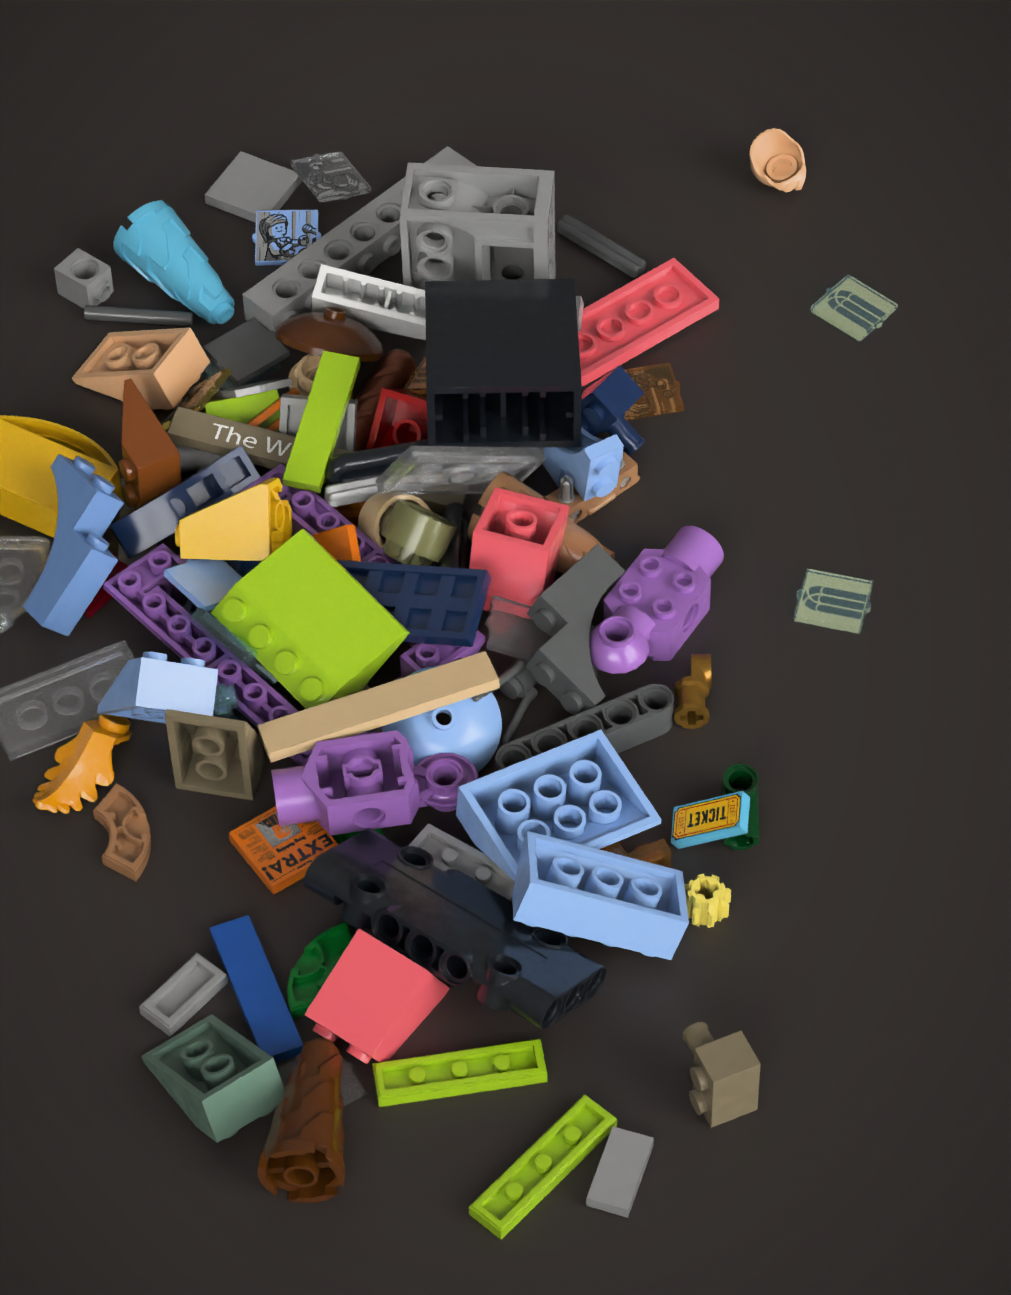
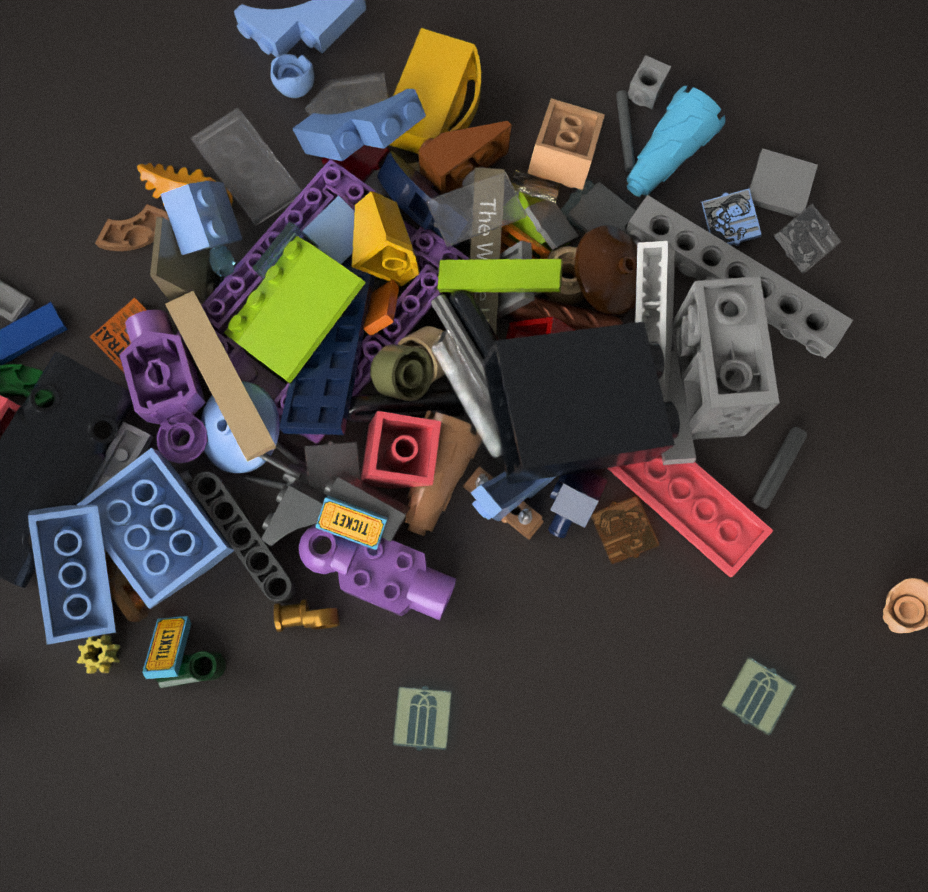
camera: 80 degrees right, 25 degrees up
(227, 433) = (476, 209): none -> clear piece
(597, 594) = (351, 522): none -> tile

